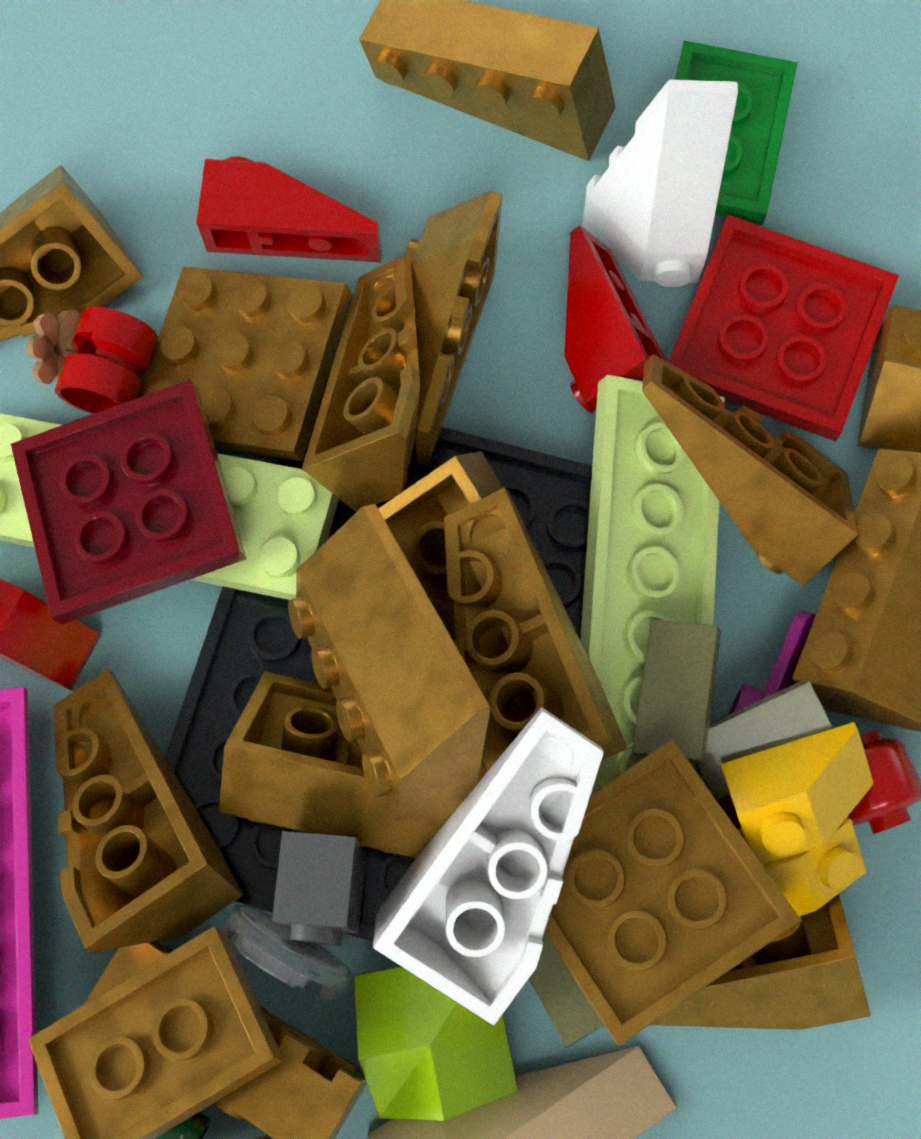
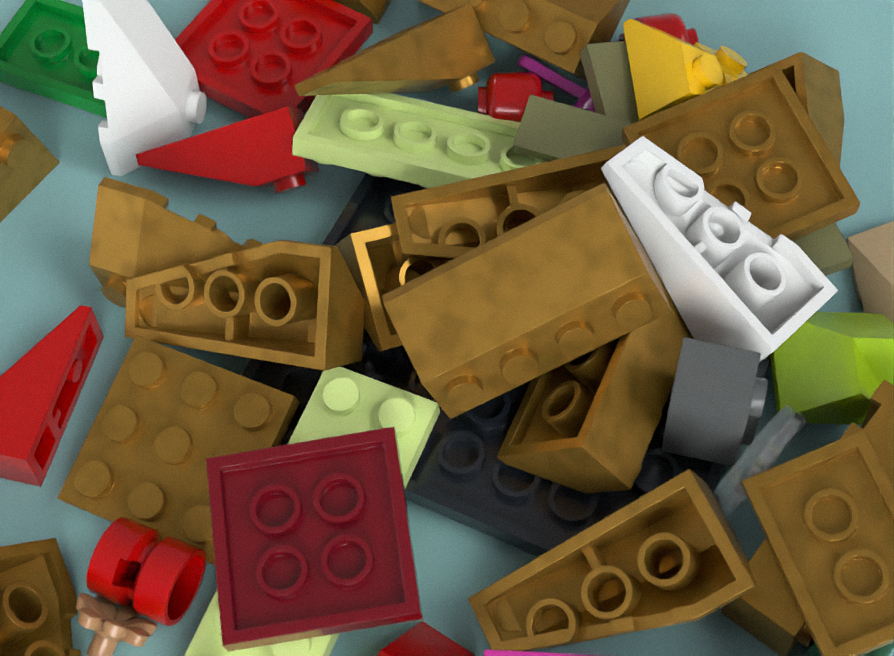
camera: 80 degrees left, 15 degrees down
(750, 619) = (508, 95): none -> red head

